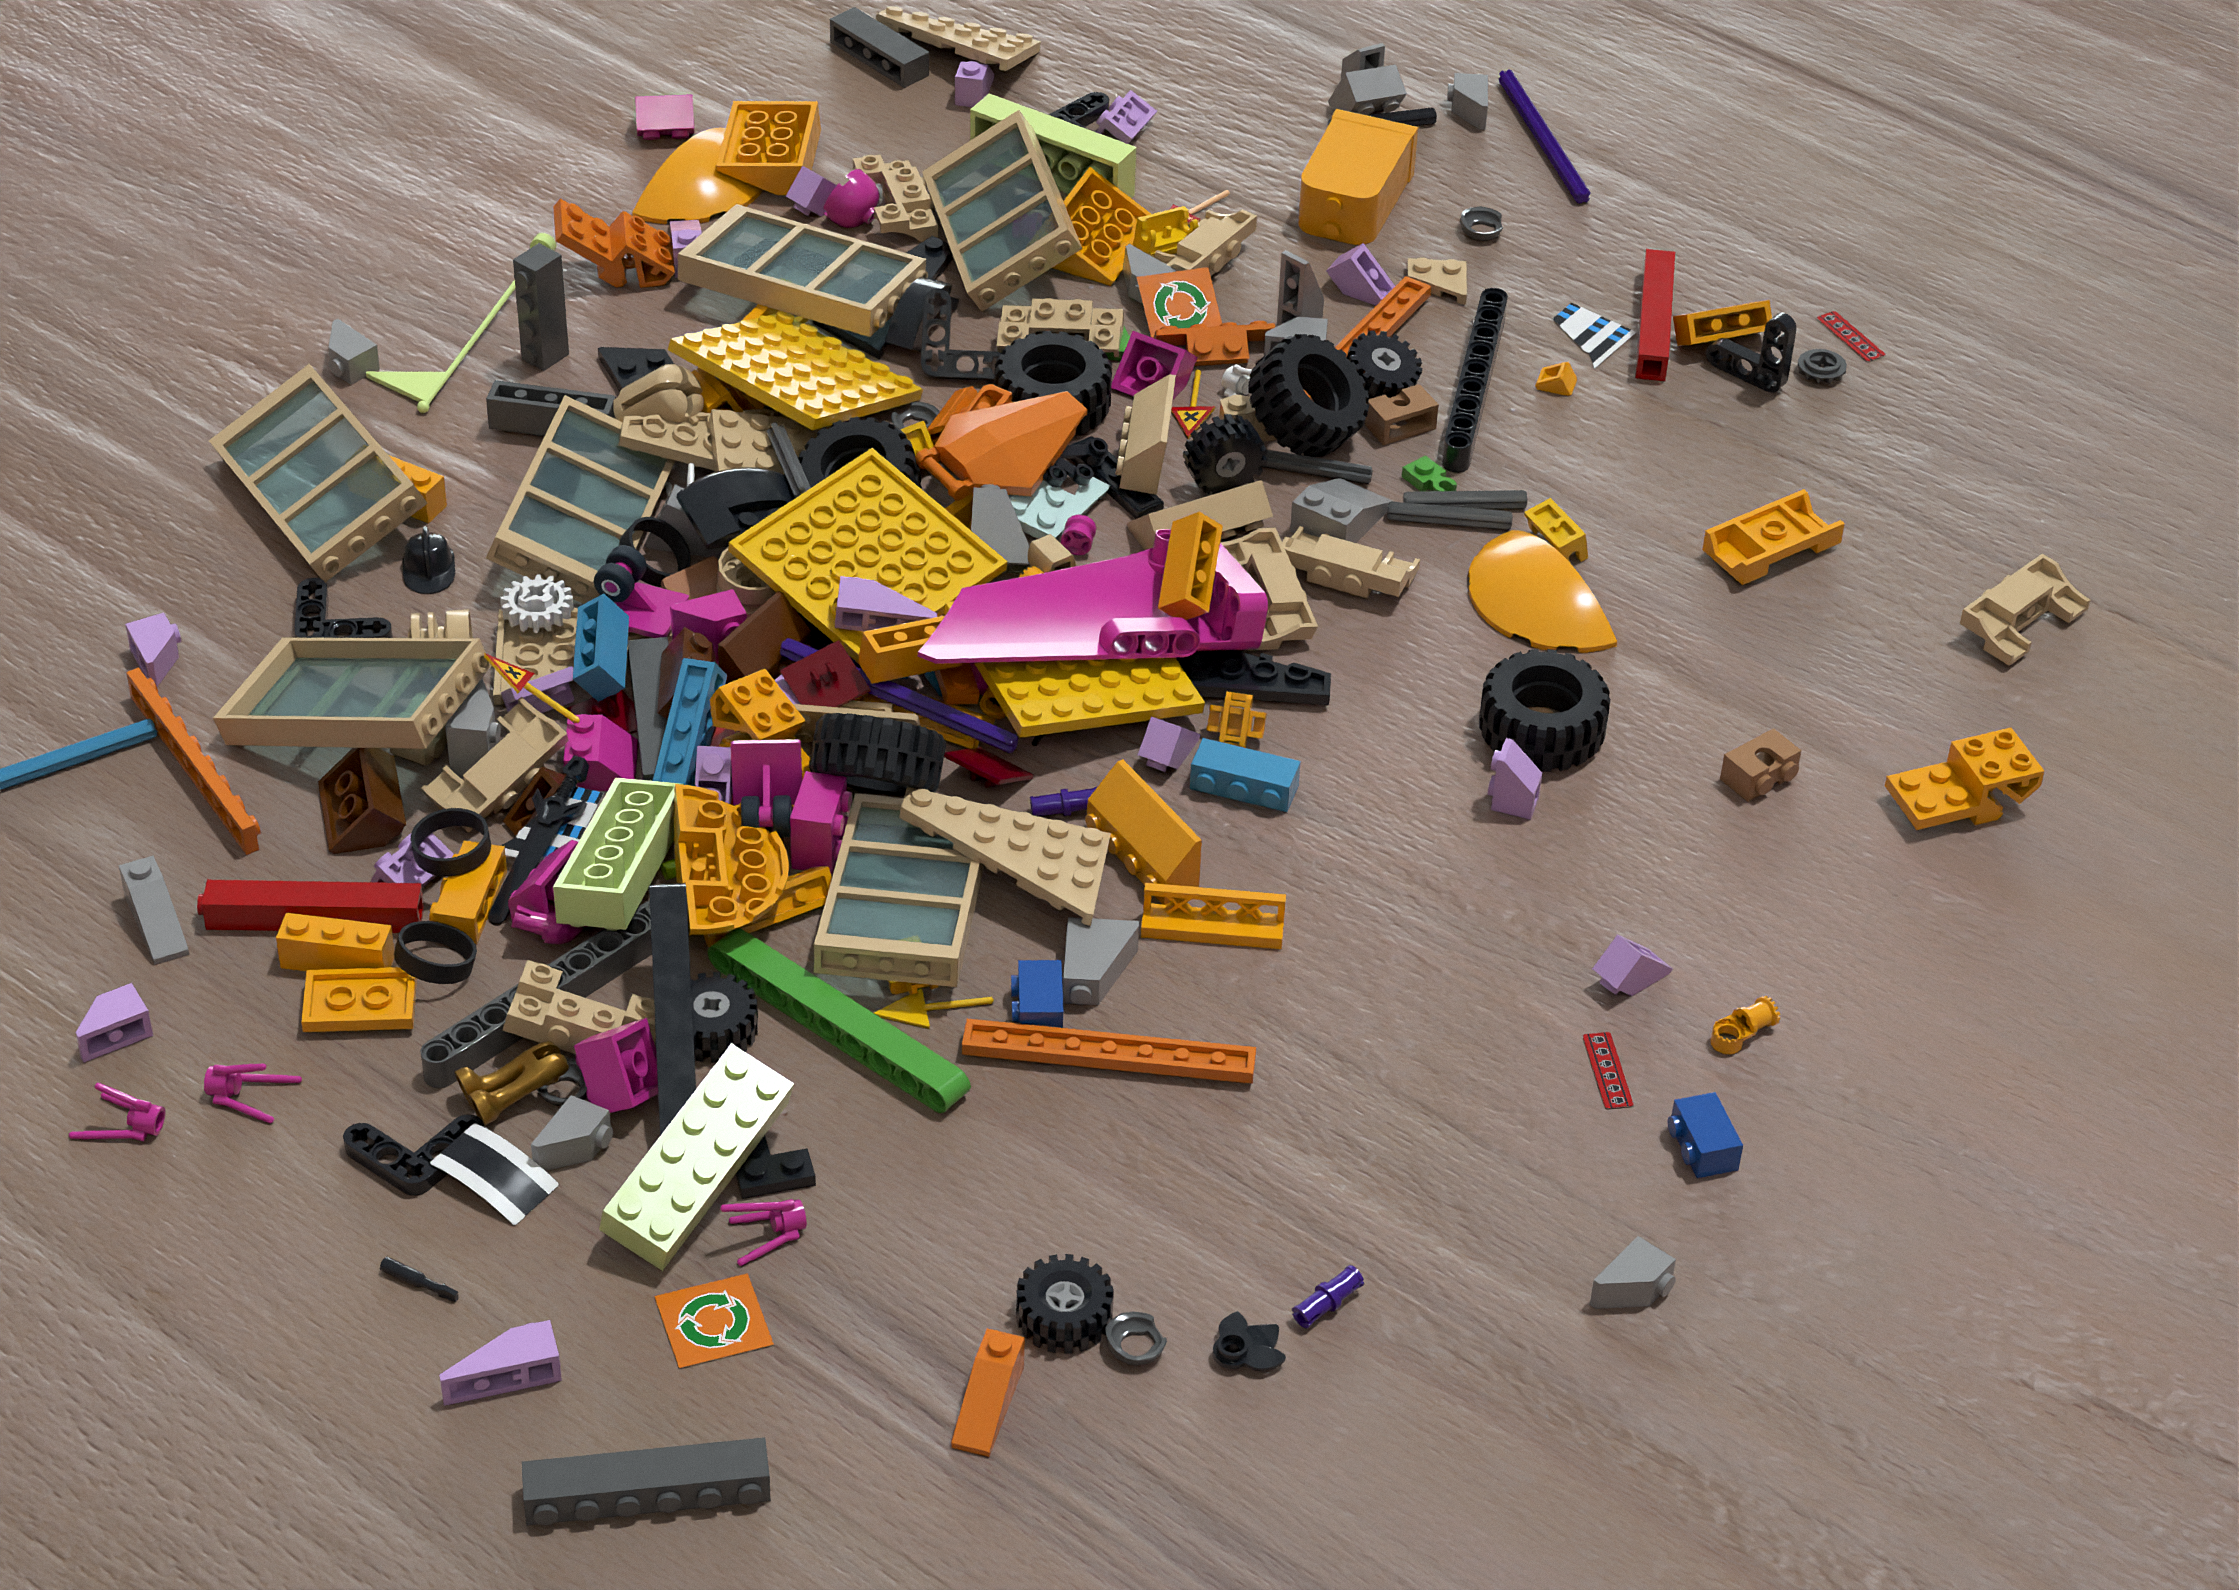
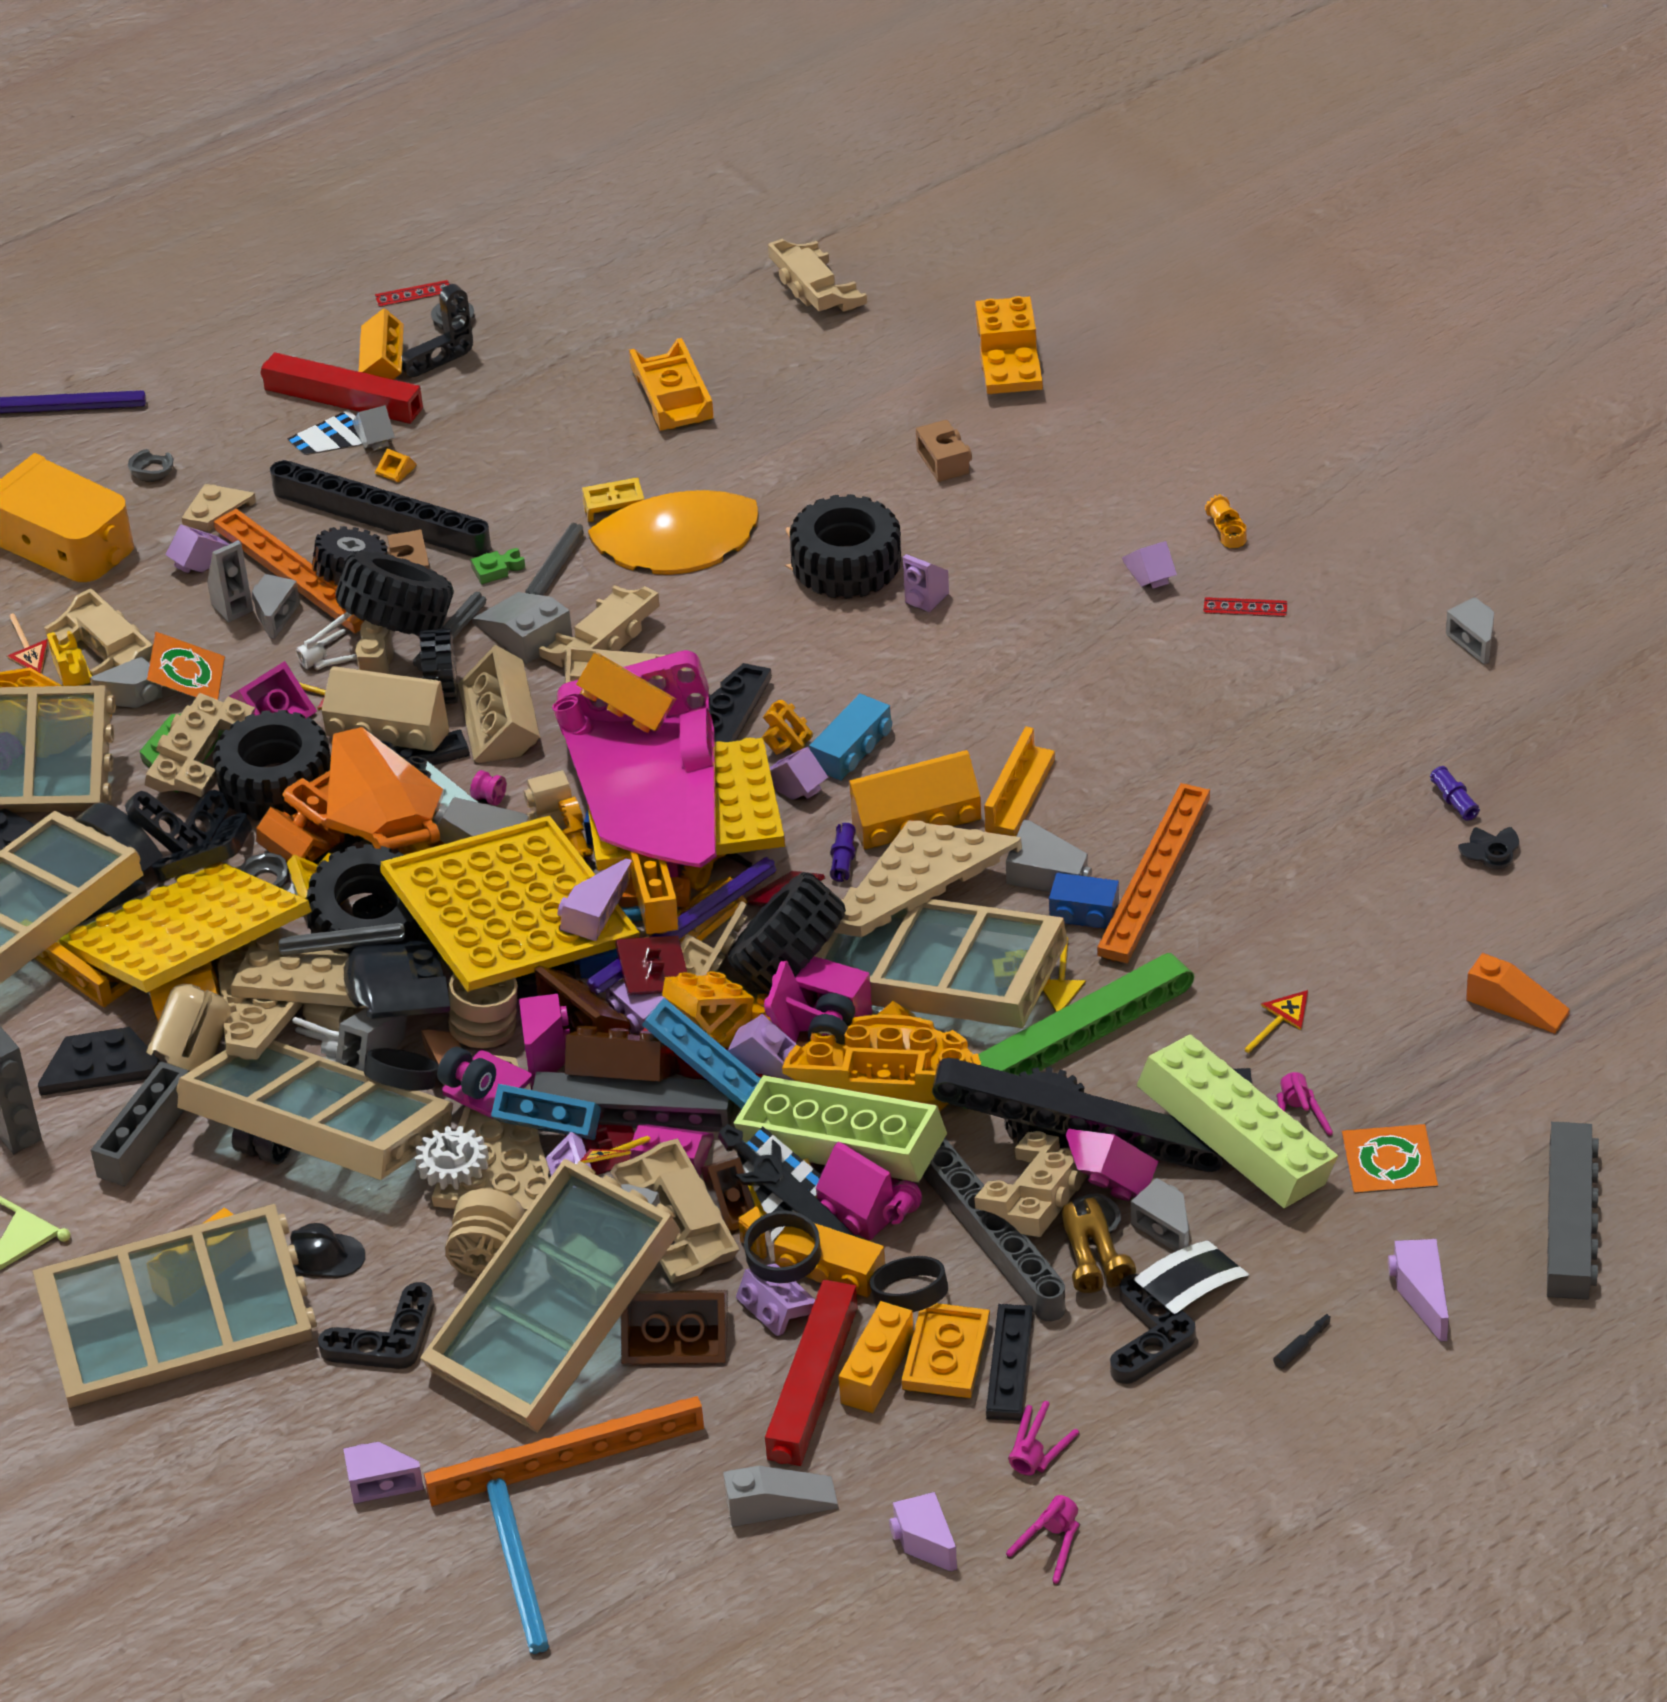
camera: 70 degrees left, 0 degrees up
(354, 1053) = (1009, 1362): none -> black tile
(500, 829) = (745, 1222): none -> light orange slope
(917, 373) = (223, 846): none -> black beam
(925, 1200) = (1287, 1008): none -> piece
(1062, 1284) = (1432, 937): black wheel -> none
(1134, 1324) = (1483, 898): dark grey piece -> none
(1218, 343) = (249, 657): orange bracket -> none
(1470, 499) = (538, 548): dark grey axle -> none
(1595, 346) = (374, 428): none -> light grey slope
(1705, 1135) = (1339, 563): blue brick -> none

